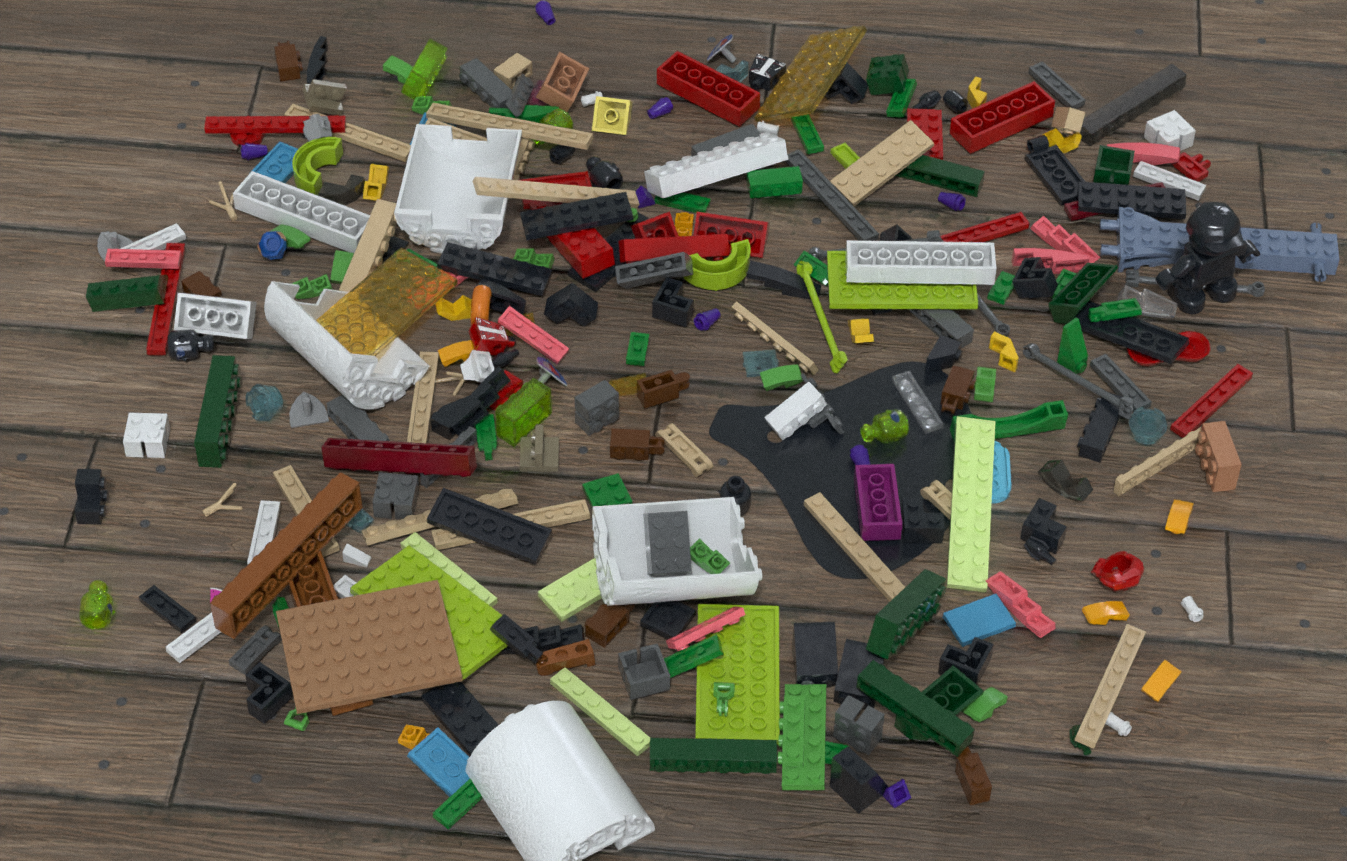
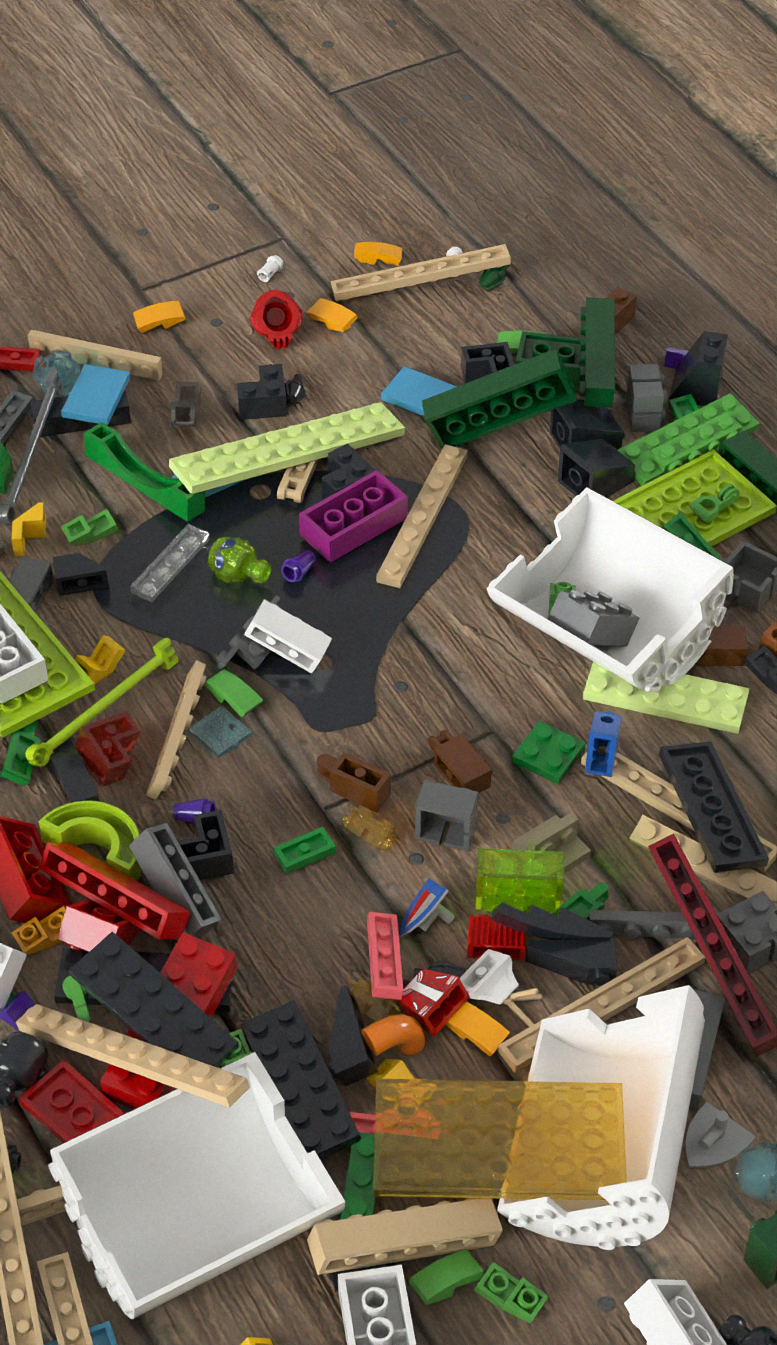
camera: 125 degrees left, 0 degrees up
(571, 303) = (304, 947): black brick -> none
(576, 498) = (603, 732): none -> blue torso
(685, 449) = (420, 720): tan plate -> none
(737, 488) = (456, 625): black piece -> none
(782, 294) = (106, 745): none -> clear red brick
(957, 389) = (126, 538): reddish brown brick -> none
(1020, 605) = (377, 372): coral slope -> none
(1102, 428) = (96, 394): none -> dark azure tile
(1218, 456) = (60, 305): nougat brick -> none

